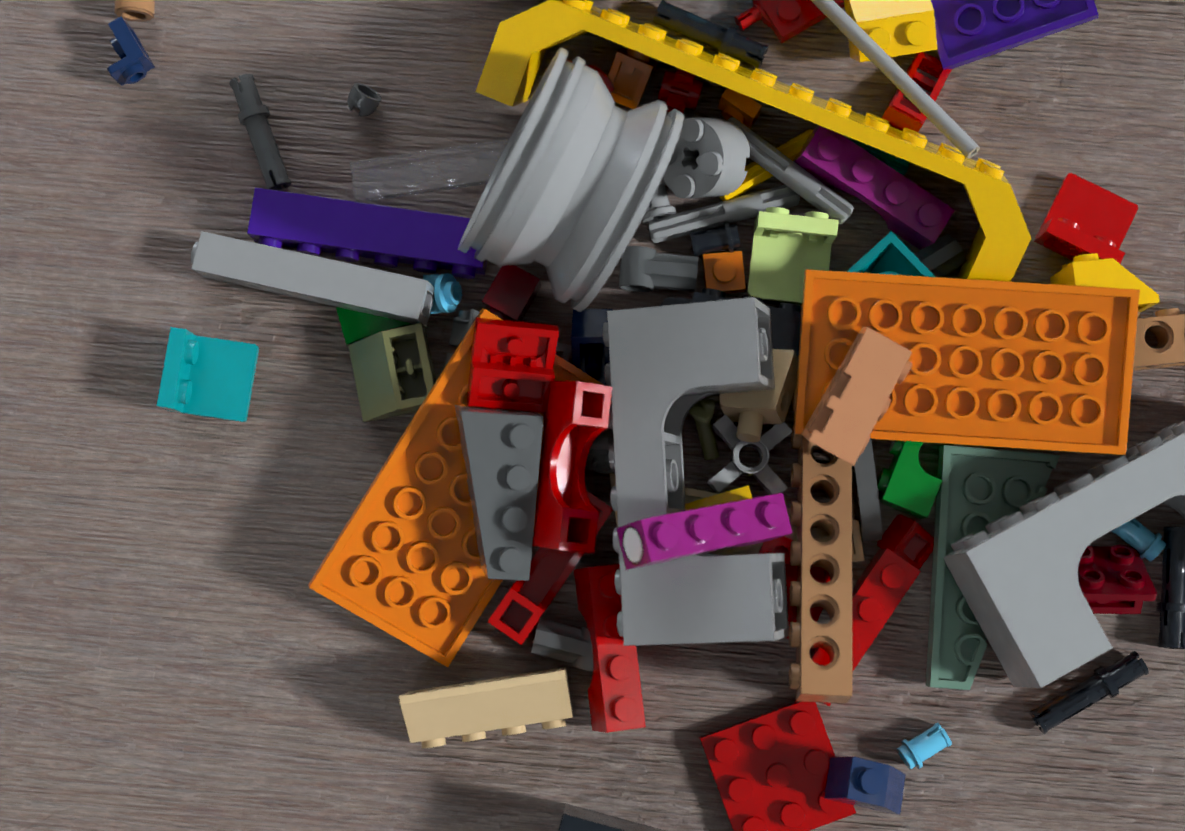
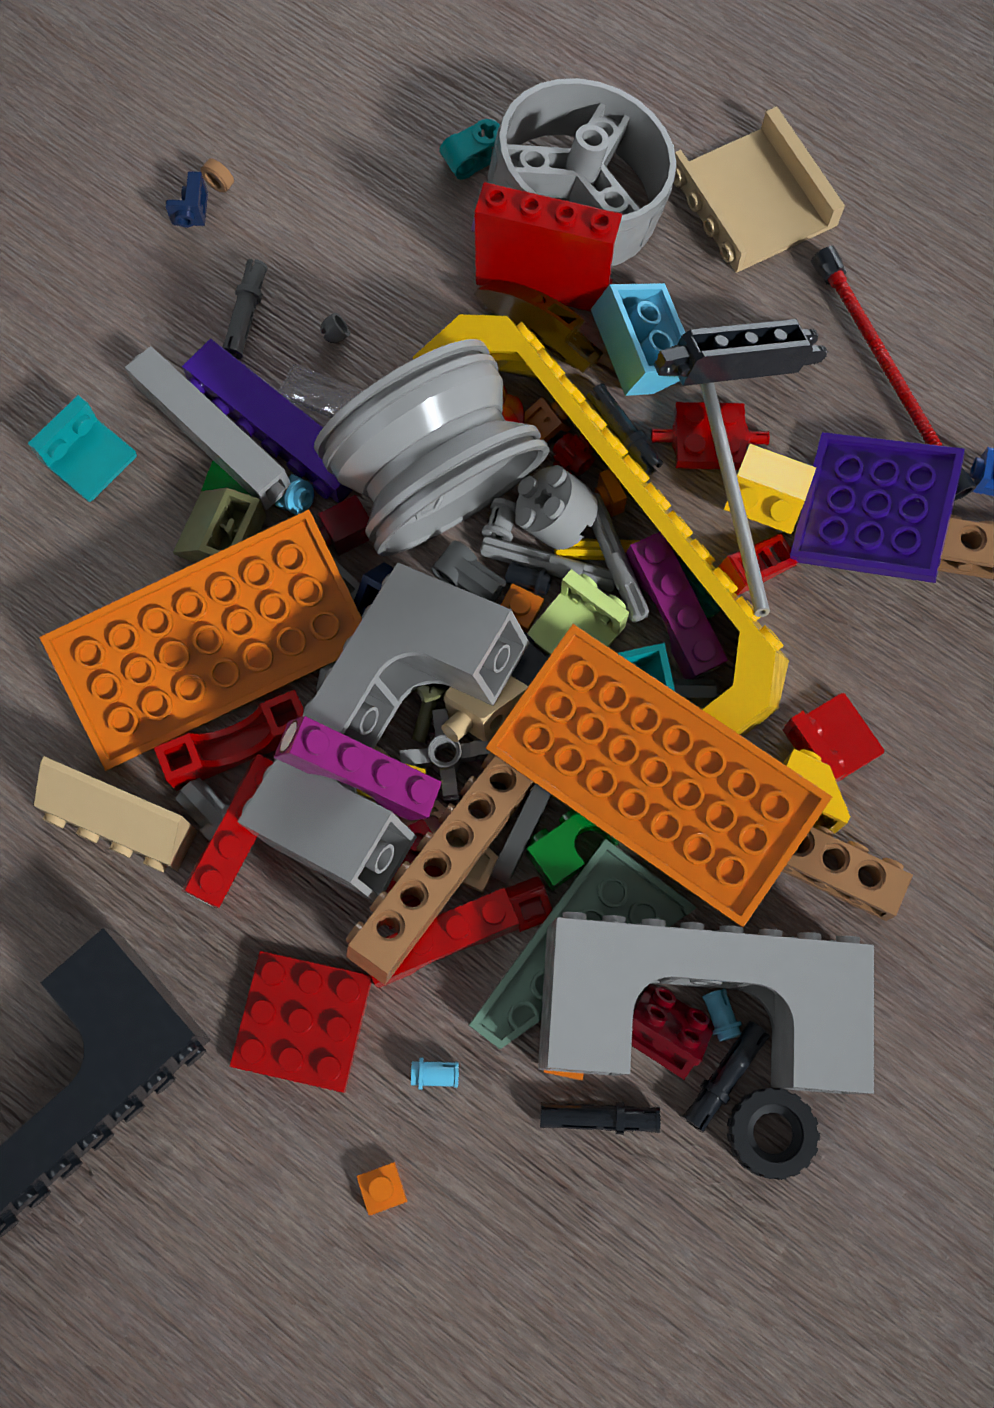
camera: 30 degrees right, 10 degrees down
(502, 475) = (235, 644): dark grey wedge -> none
(512, 365) = (301, 564): red slope -> none
(573, 422) = (269, 688): red arch -> none
(858, 395) = (548, 741): nougat wedge -> none
(865, 784) = (366, 1072): dark blue slope -> none

